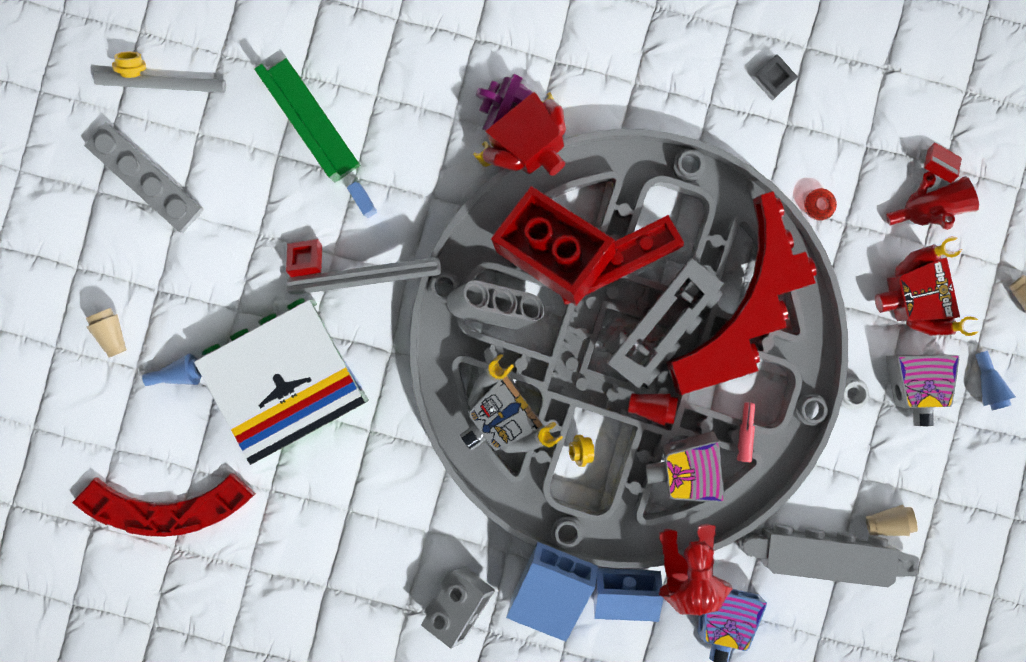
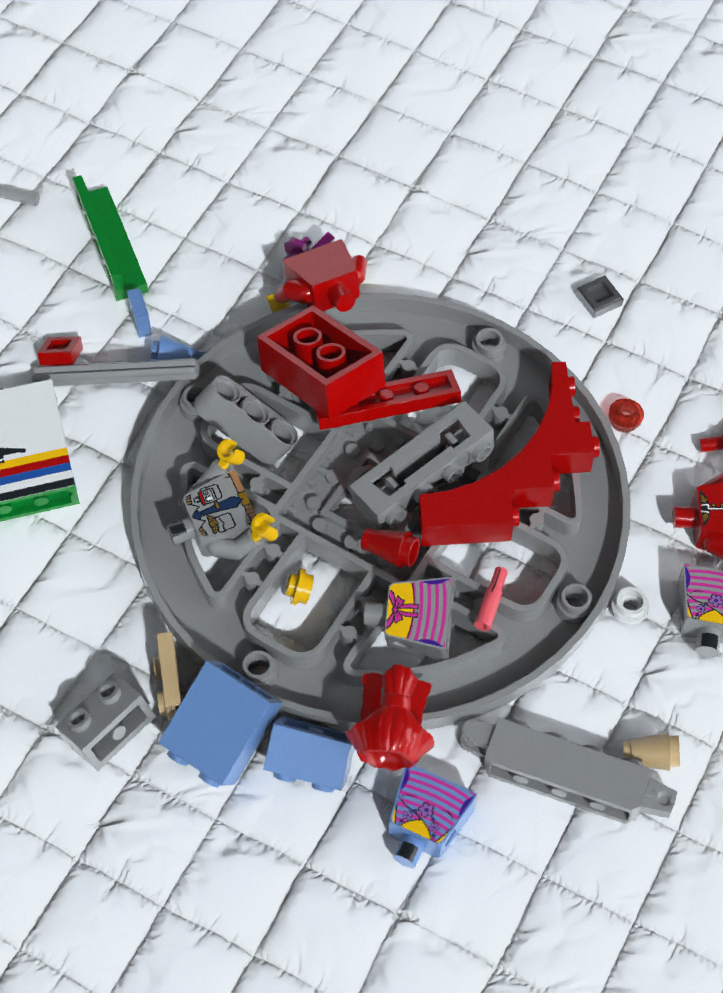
camera: 10 degrees right, 30 degrees down
(405, 235) = (172, 349): none -> medium blue cone
(502, 569) = (167, 669): none -> tan plate

